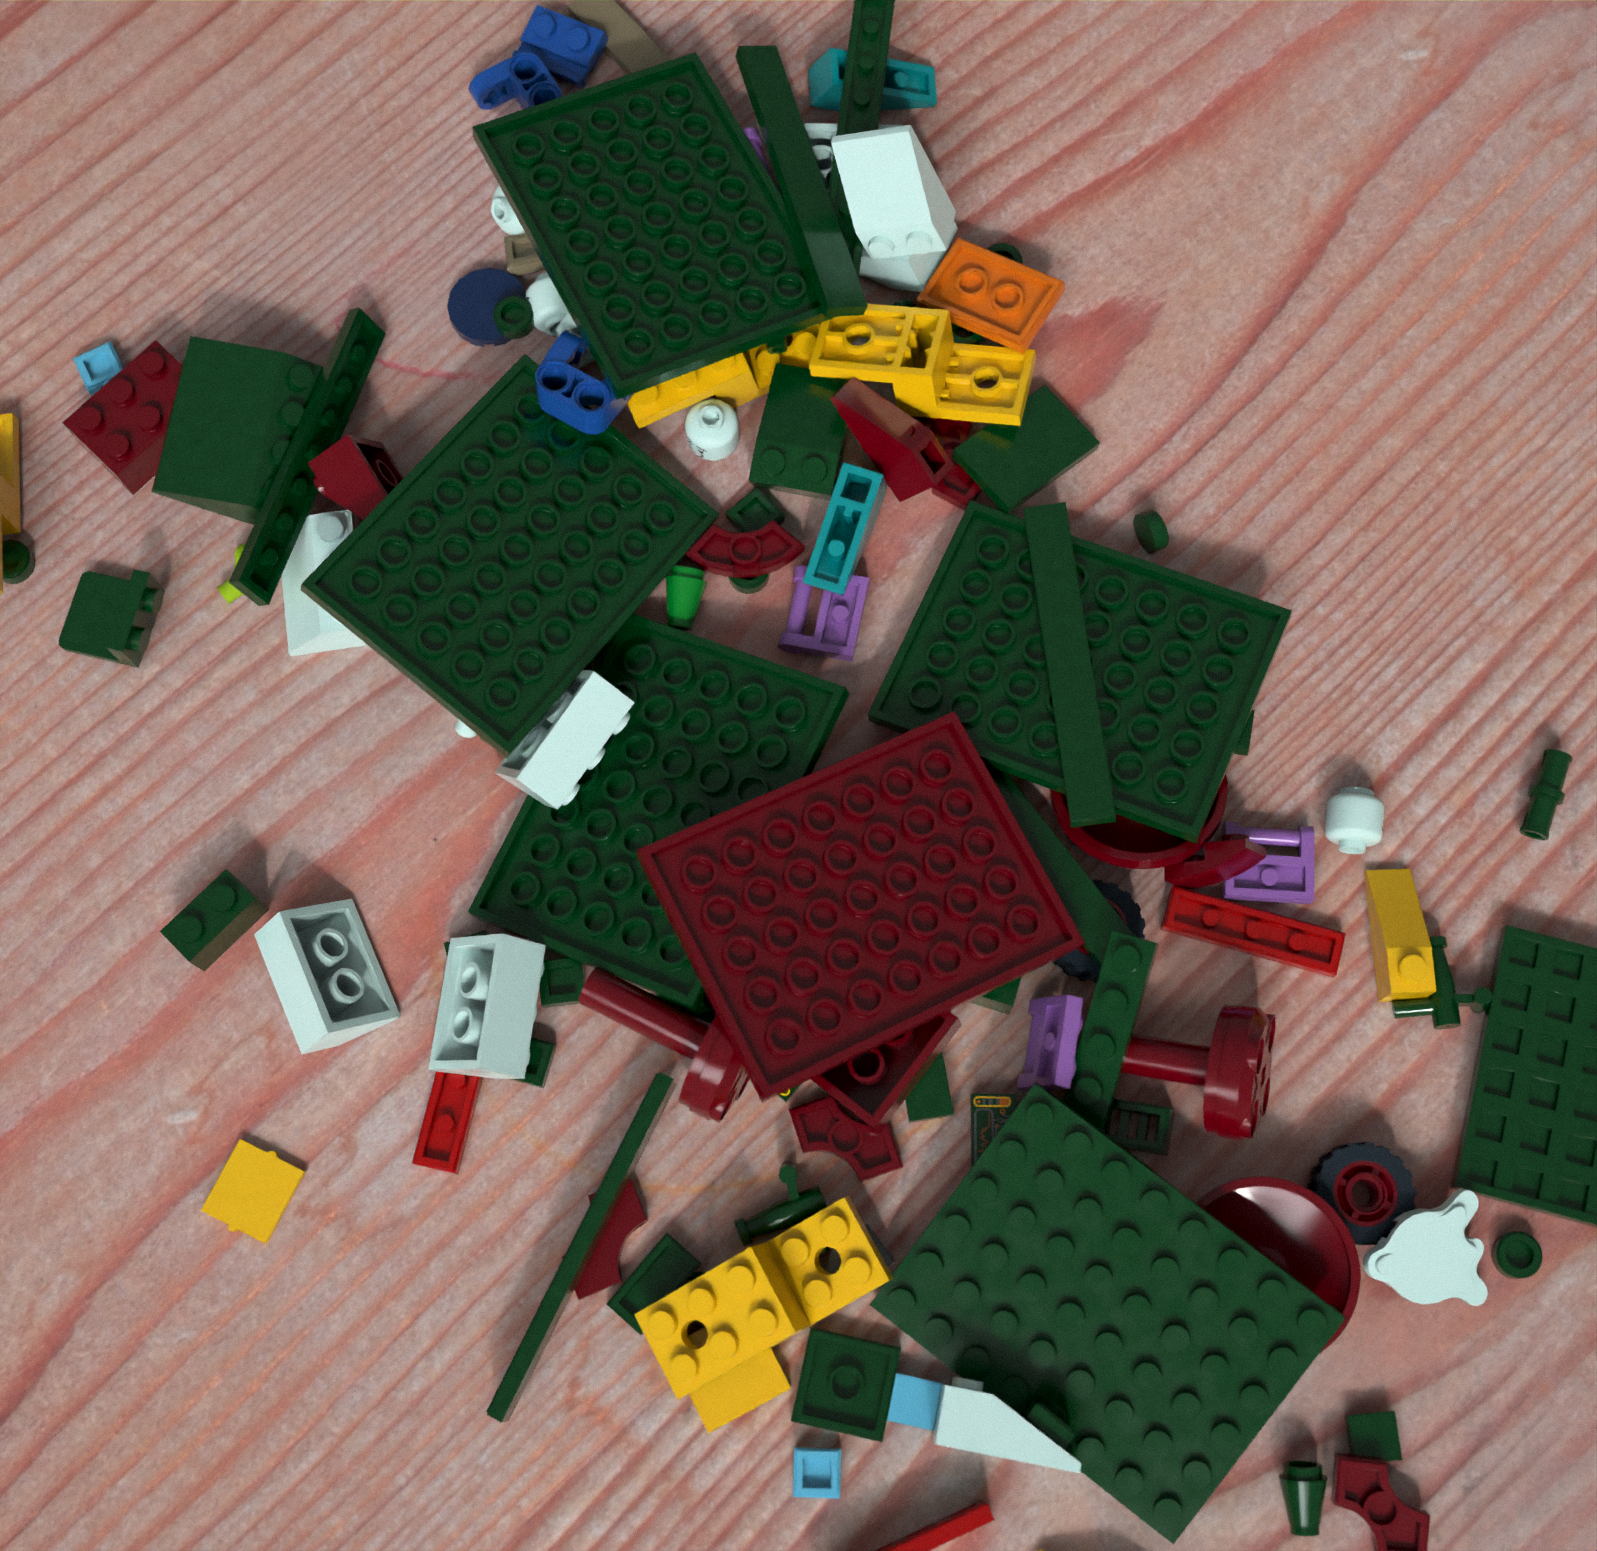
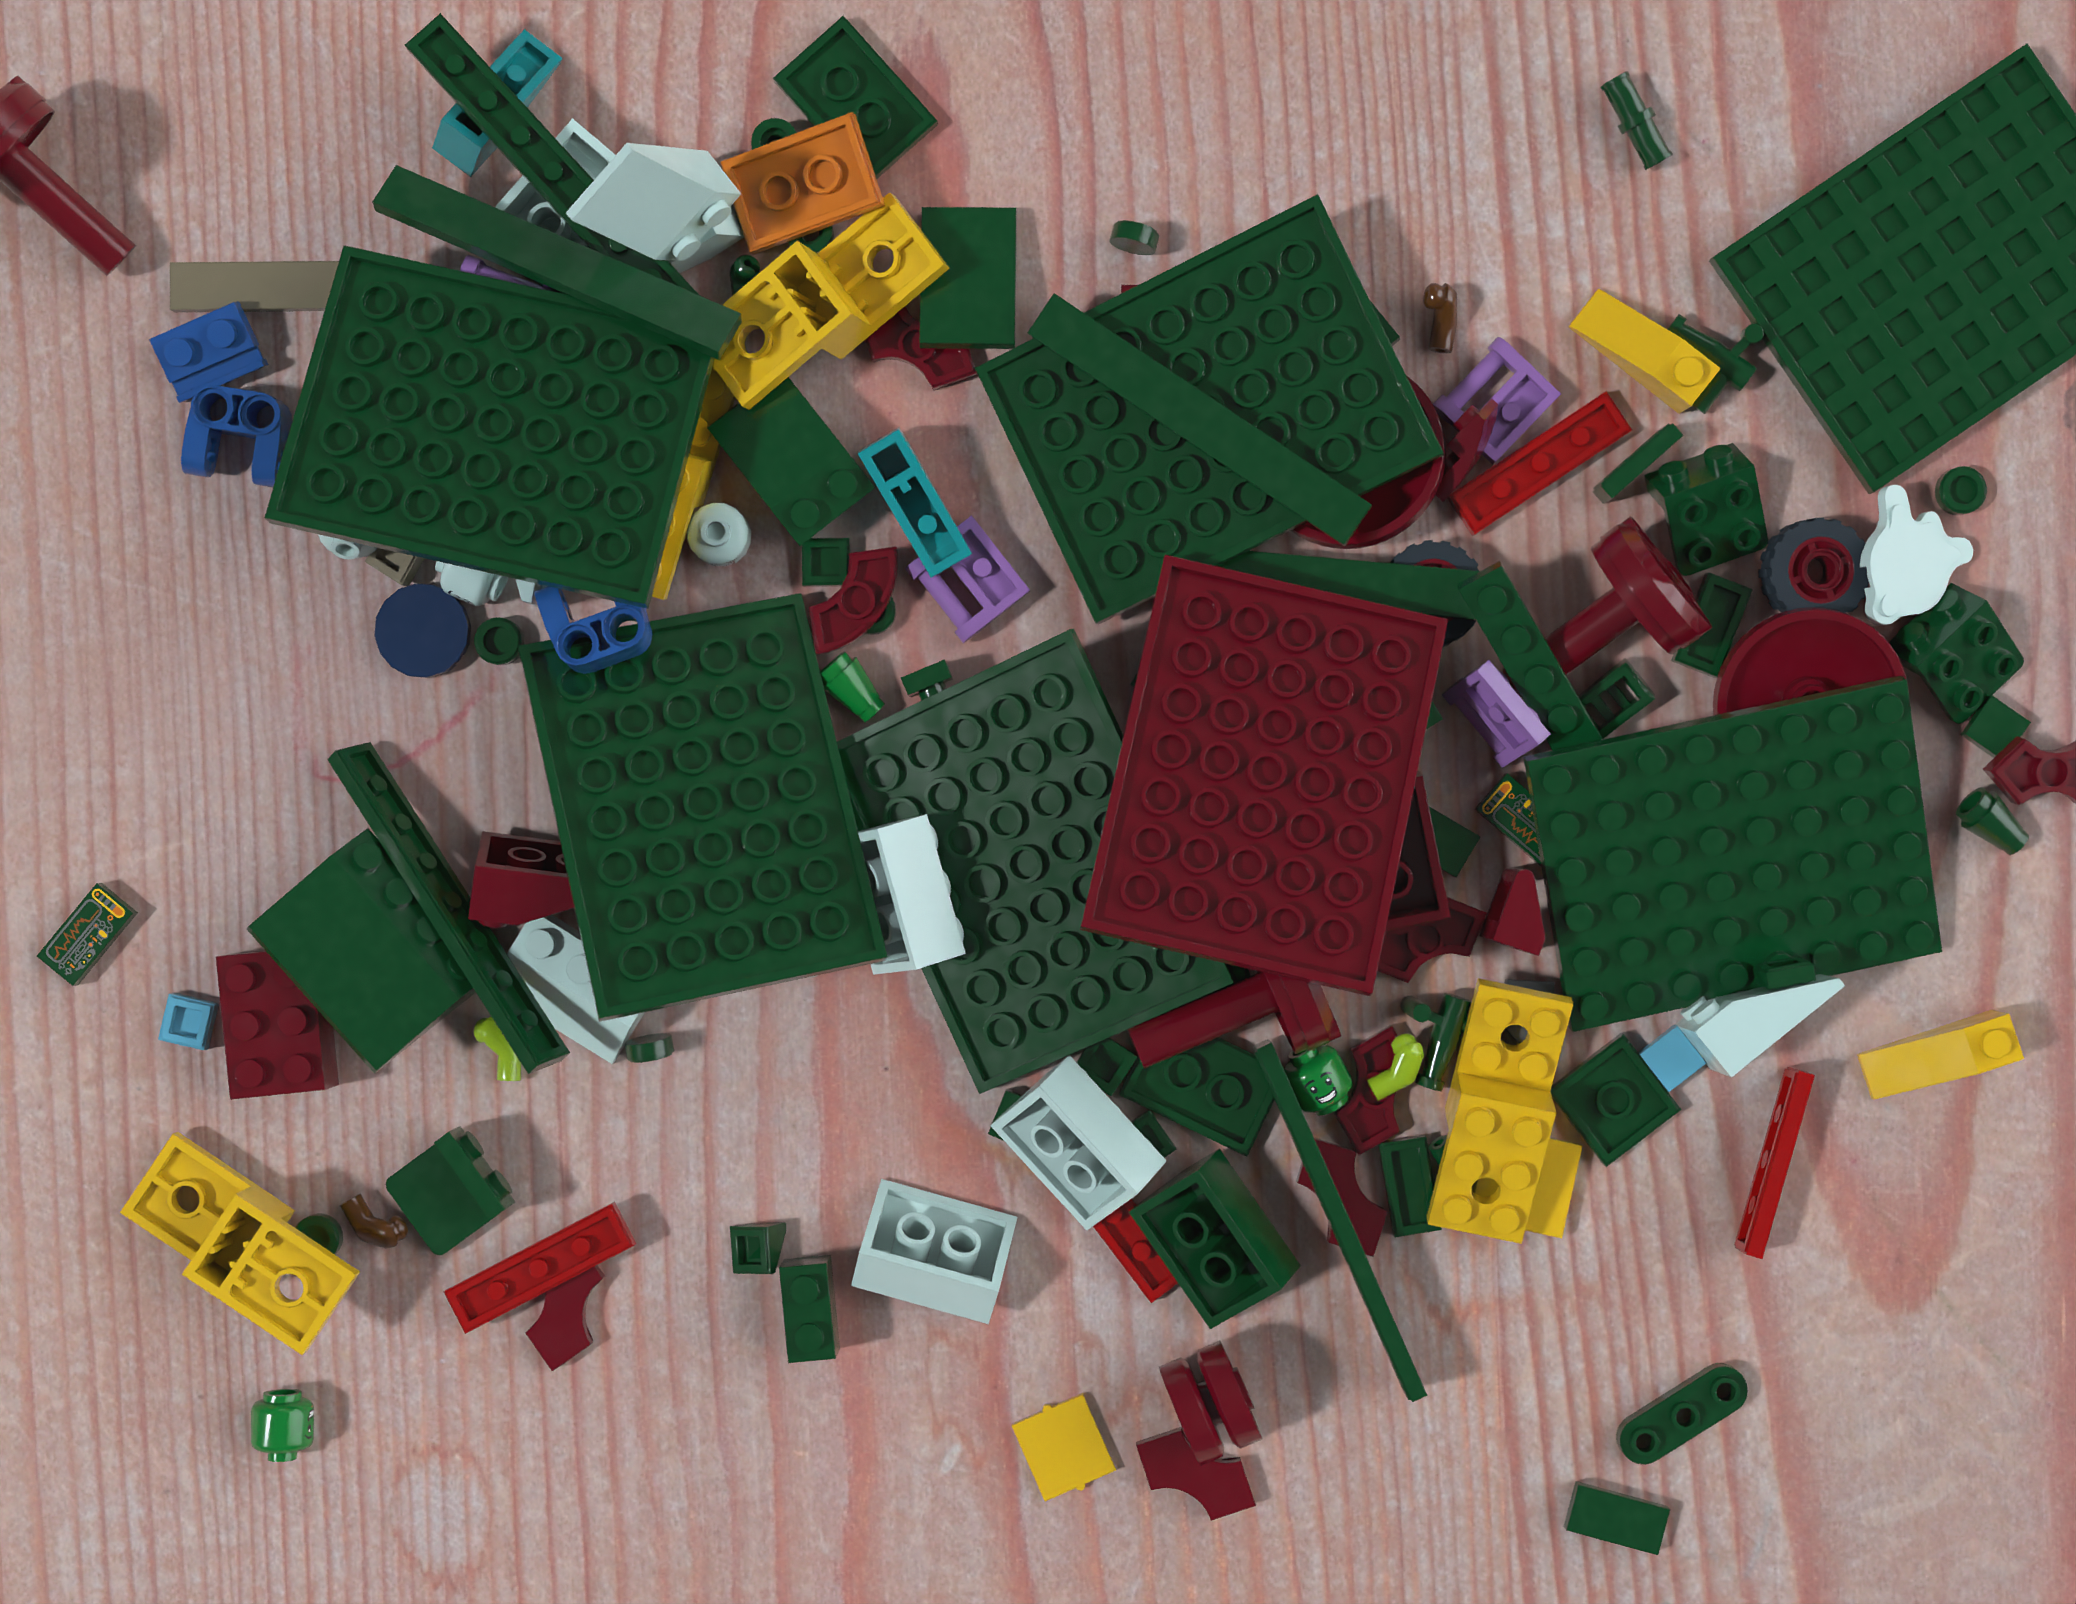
camera: 55 degrees left, 15 degrees up
(45, 588) = (373, 1229): none -> reddish brown arm
(73, 766) = (562, 1325): none -> dark red tile
(102, 716) = (539, 1267): none -> red tile
(111, 264) = (87, 934): none -> dark green tile
(233, 852) = (756, 1247): none -> dark green slope
(311, 1326) = (1217, 1485): none -> dark red tile
(319, 666) = (649, 1047): none -> dark green tile
(366, 1263) = (1211, 1402): none -> dark red wheel
(496, 1167) = (1215, 1239): none -> dark green slope
(514, 317) = (457, 618): dark green tile -> none
(517, 348) = (498, 641): none -> dark green tile
(602, 1070) = (1208, 1090): none -> dark green tile
(676, 1143) = (1319, 1079): none -> green head
(724, 1186) = (1363, 1116): none -> dark red tile
(732, 636) = (927, 680): none -> dark green plate
(736, 1199) = (1403, 1069): none -> lime arm
(817, 1472) = (1659, 1178): medium azure tile -> none
(893, 440) = (872, 390): dark red slope -> none
(916, 1180) = (1515, 913): none -> dark red tile
(1086, 308) = (847, 76): none -> dark green tile
(1268, 1151) = (1723, 606): none -> dark green tile
(1293, 779) = (1444, 324): none -> reddish brown arm
(1317, 996) = (1637, 462): none -> dark green tile
(1333, 1078) = (1710, 507): none -> dark green bracket
(1354, 819) = (1523, 298): light aqua head -> none
(1402, 1357) = (1958, 651): none -> dark green bracket

